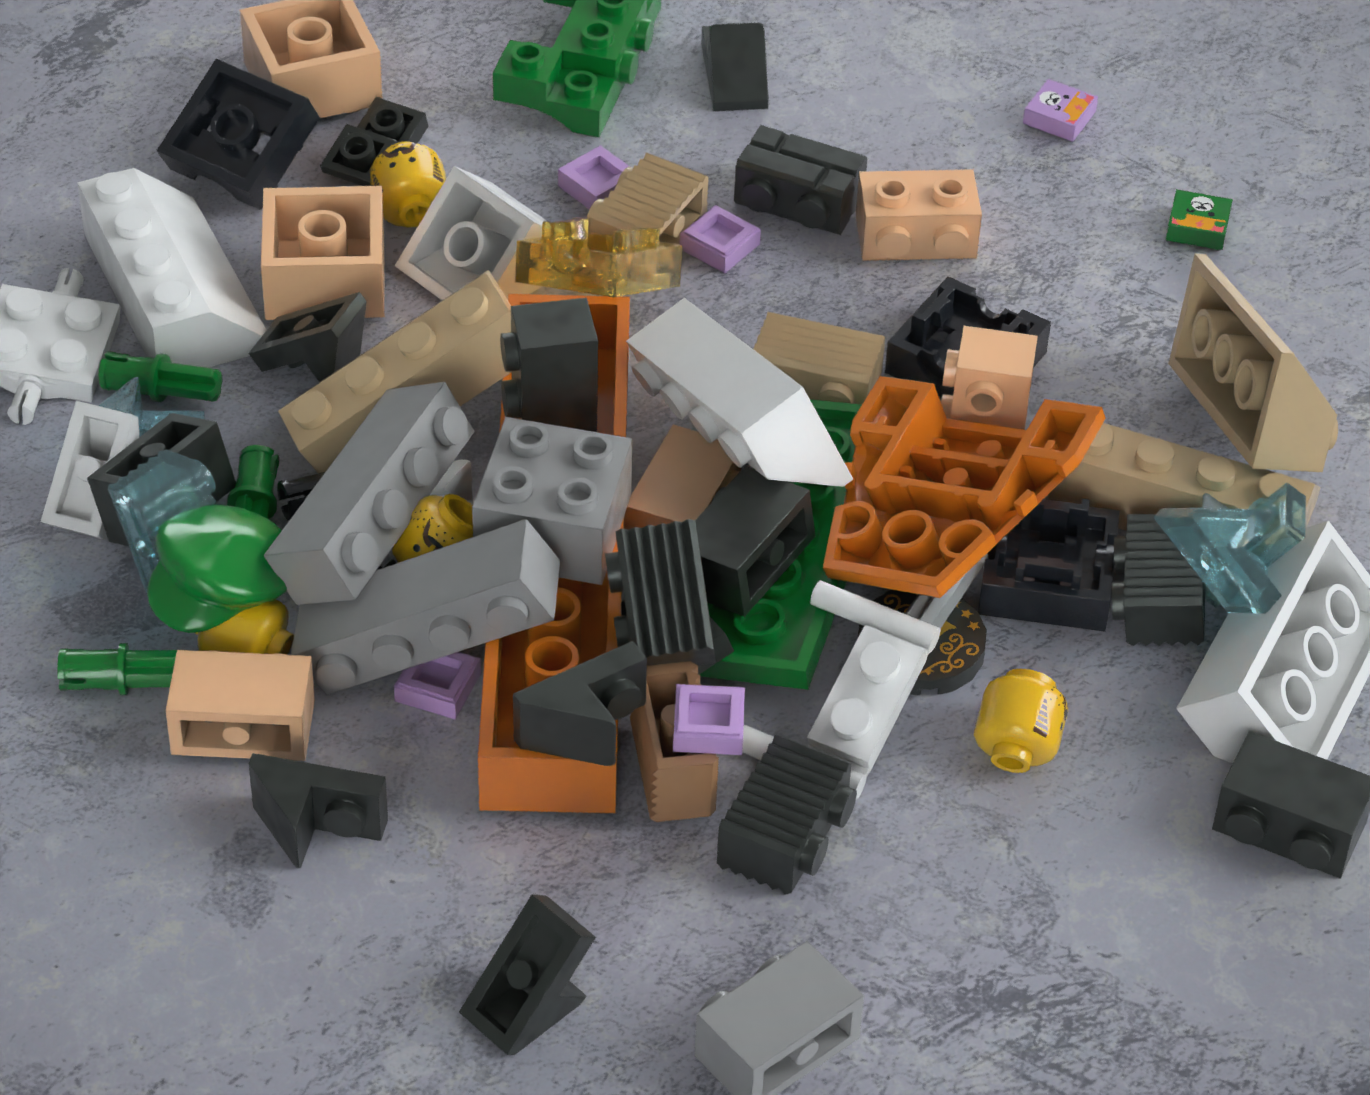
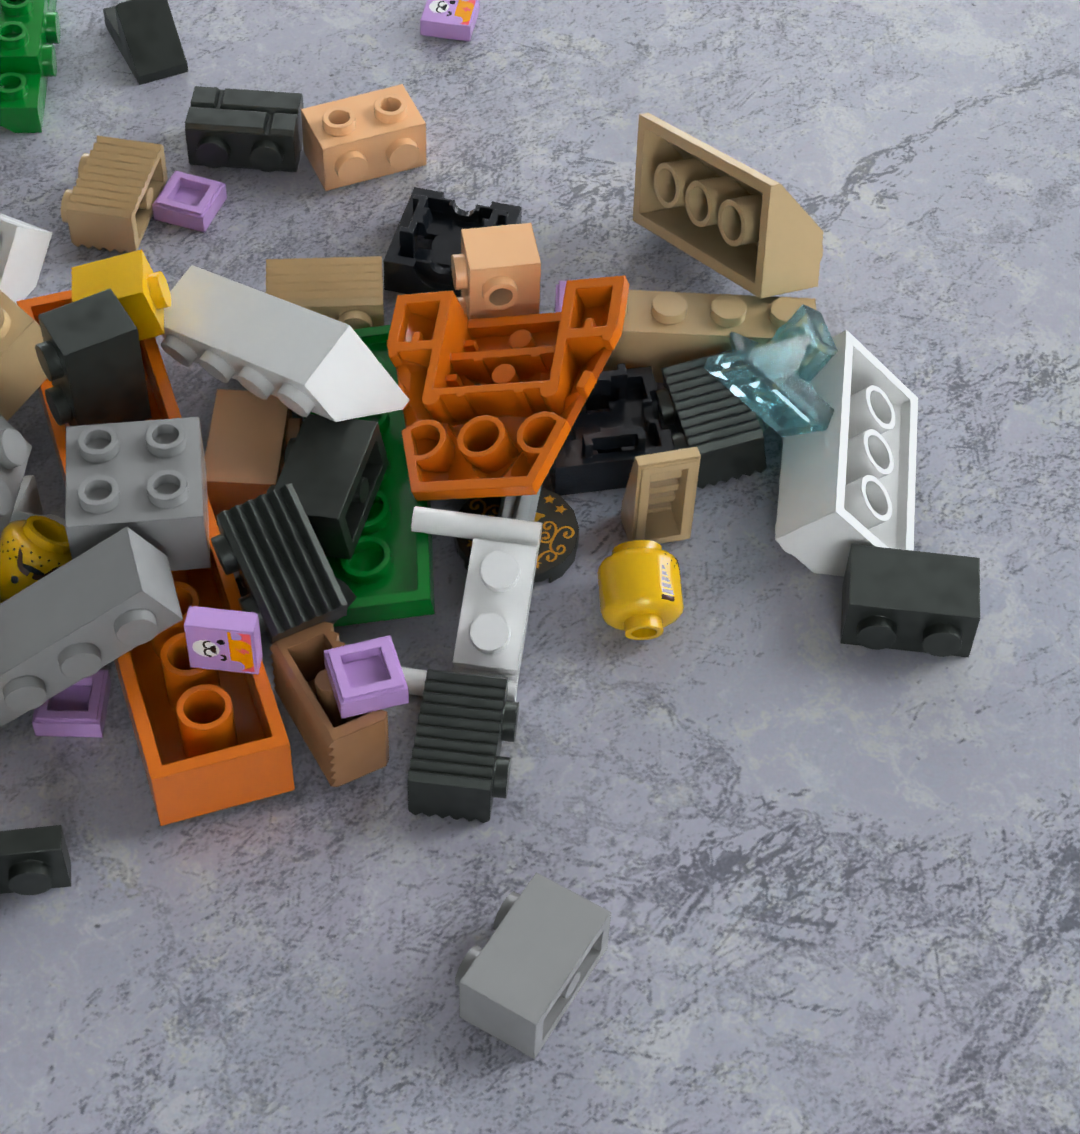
camera: 20 degrees left, 5 degrees up
(529, 977) = (276, 991): pearl dark grey slope -> none
(578, 708) = (239, 704): pearl dark grey slope -> none
(579, 639) = (223, 639): none -> lavender tile
(591, 176) = (50, 170): lavender tile -> none
(596, 262) = (59, 245): clear yellow brick -> none
(616, 307) = (134, 284): none -> yellow brick
(1075, 635) = (661, 496): none -> tan slope
(1199, 219) = (607, 85): green tile -> none

